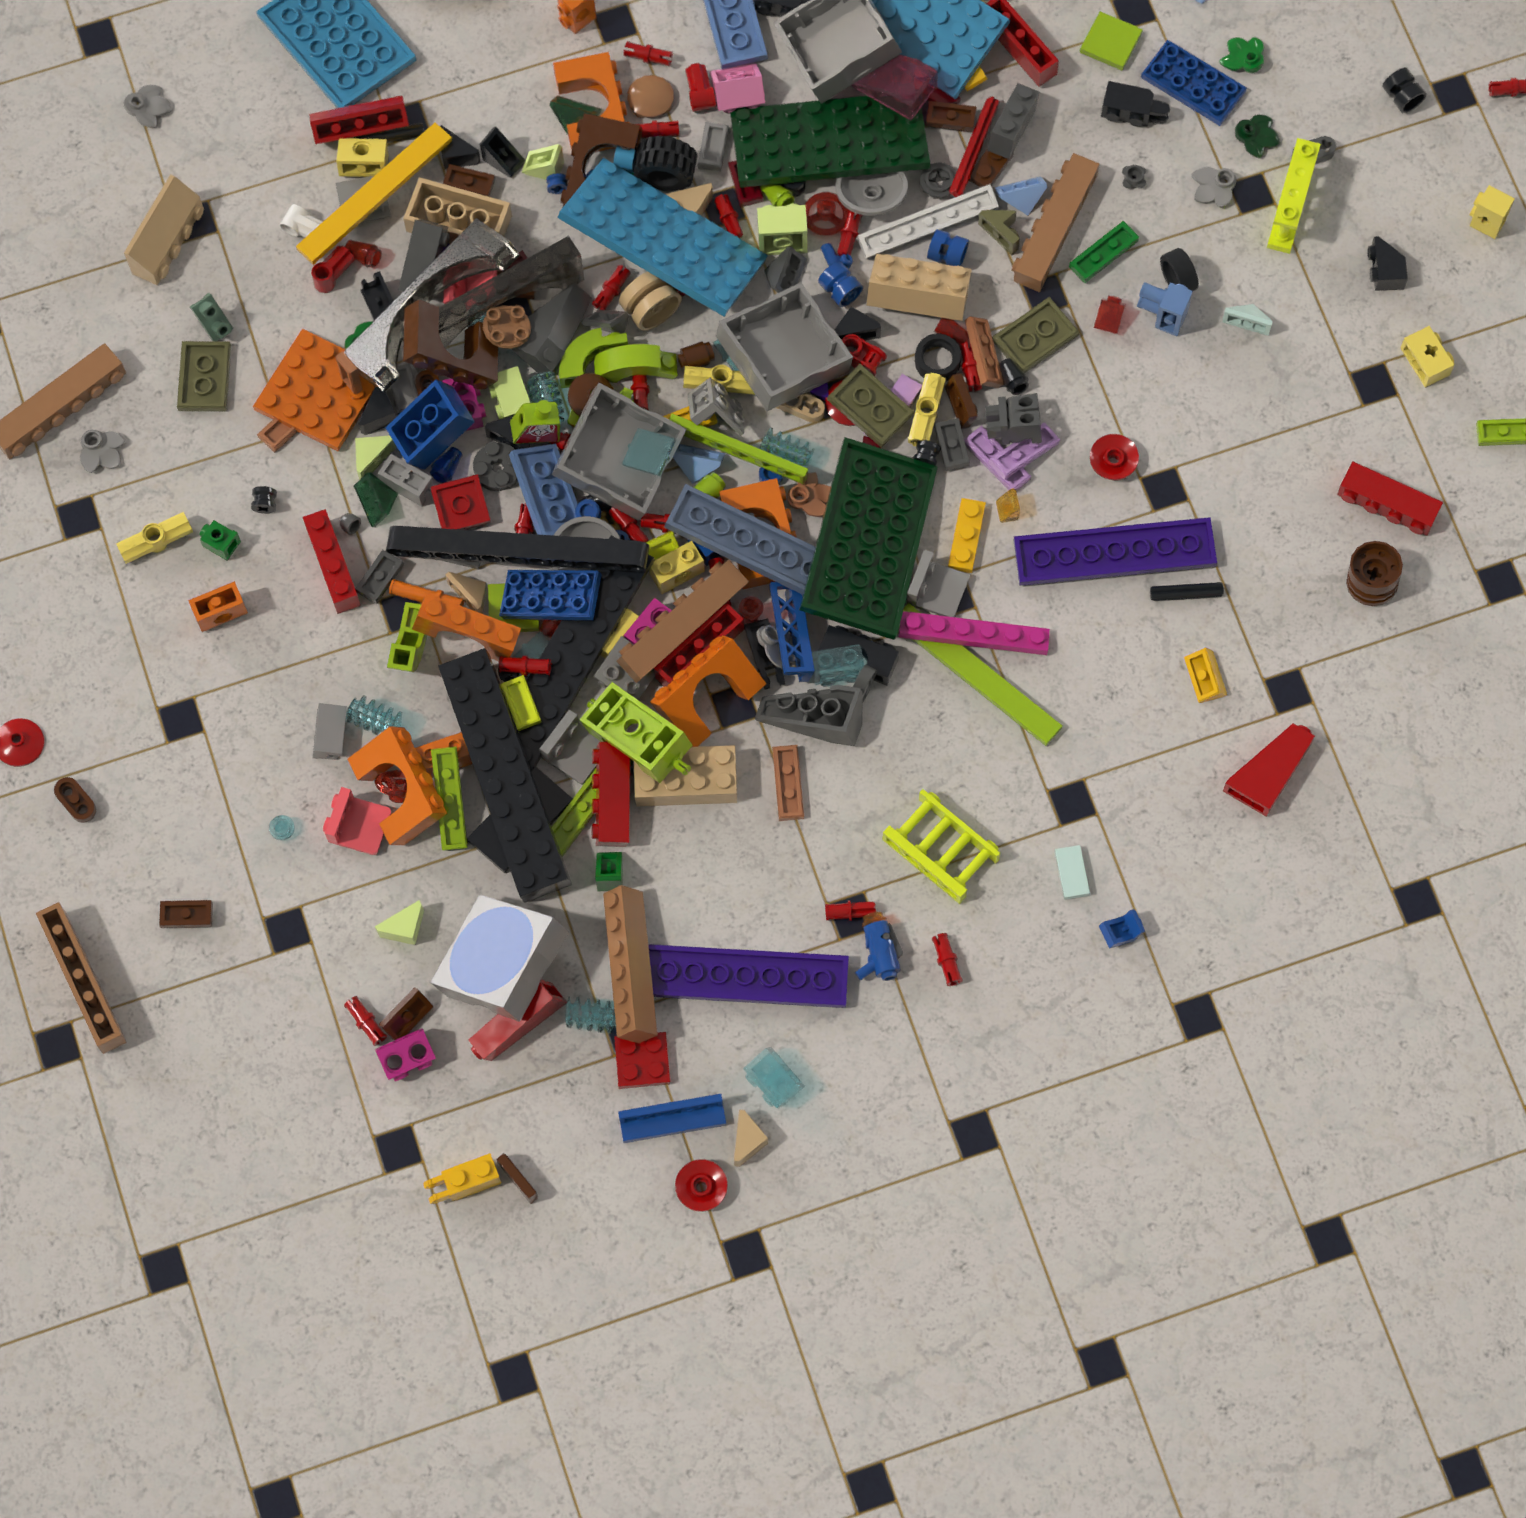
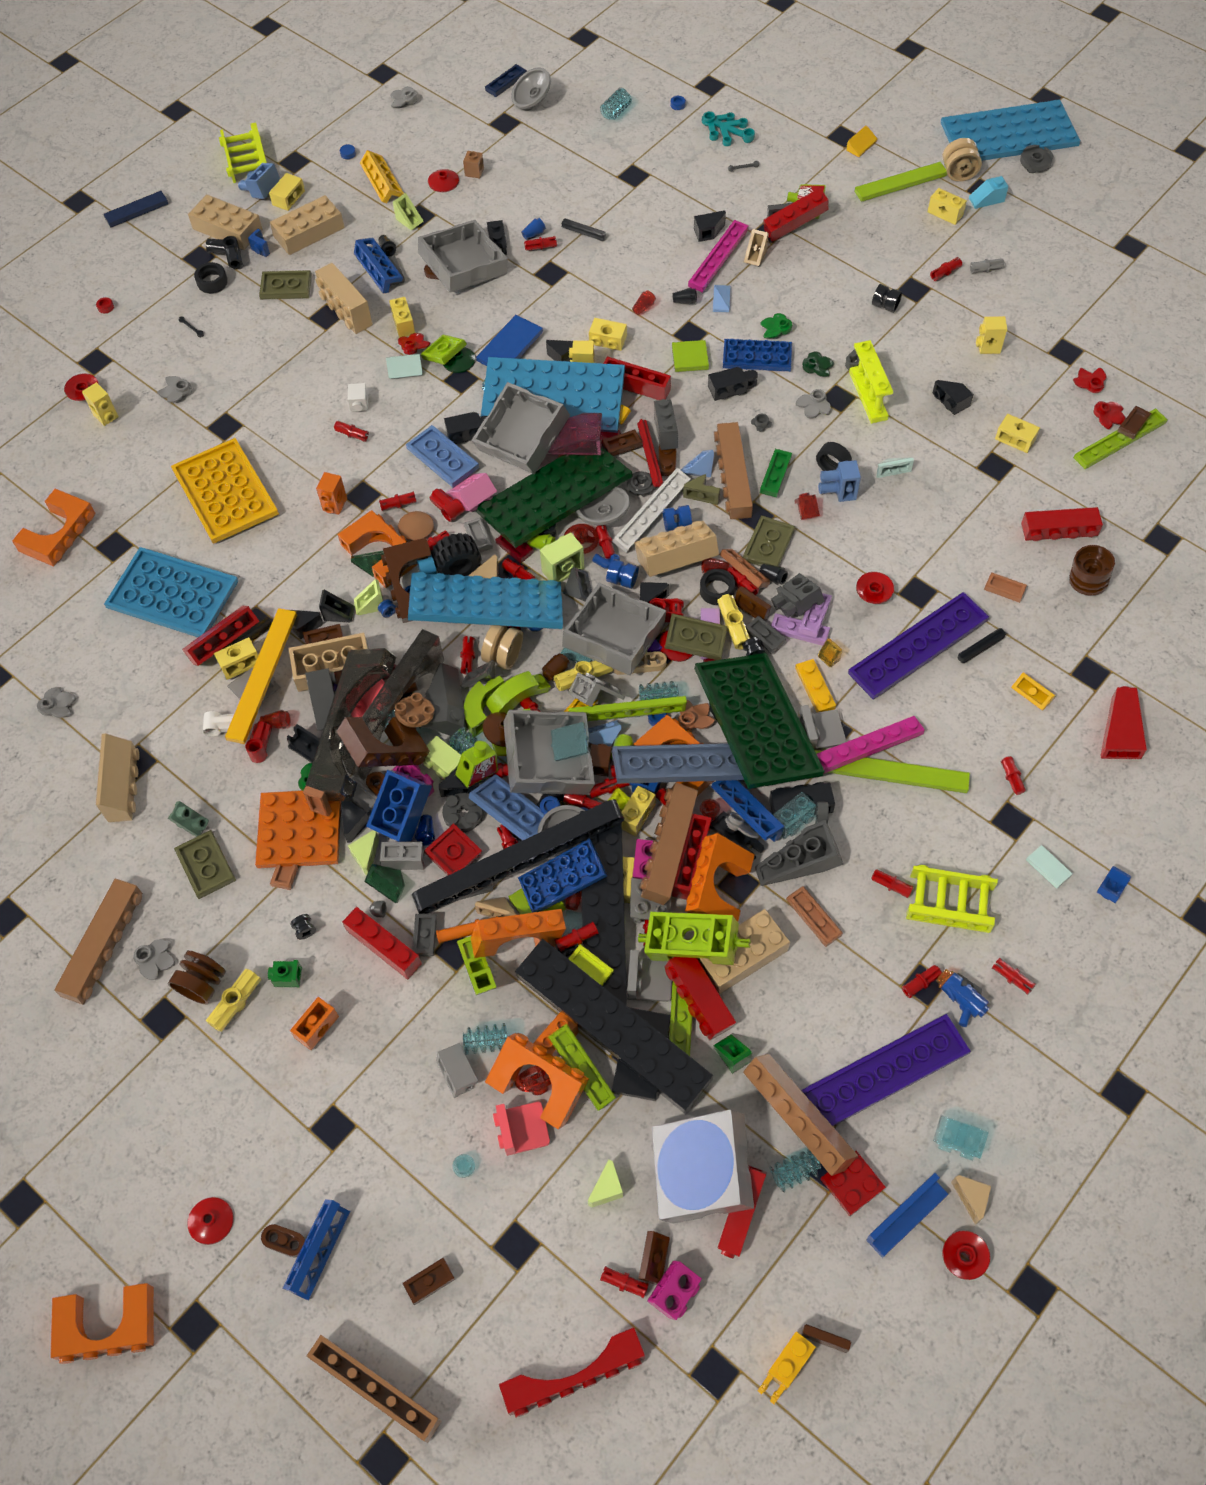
camera: 30 degrees left, 10 degrees down
(97, 819) = (312, 1247): none -> blue fence
(130, 494) = (199, 972): none -> reddish brown wheel
(319, 1078) = (524, 1392): none -> red arch
(672, 486) = (601, 759): none -> reddish brown brick
(892, 795) = (892, 883): none -> red axle
(1107, 754) = (1013, 775): none -> red axle
(1267, 538) = (1005, 587): none -> nougat tile

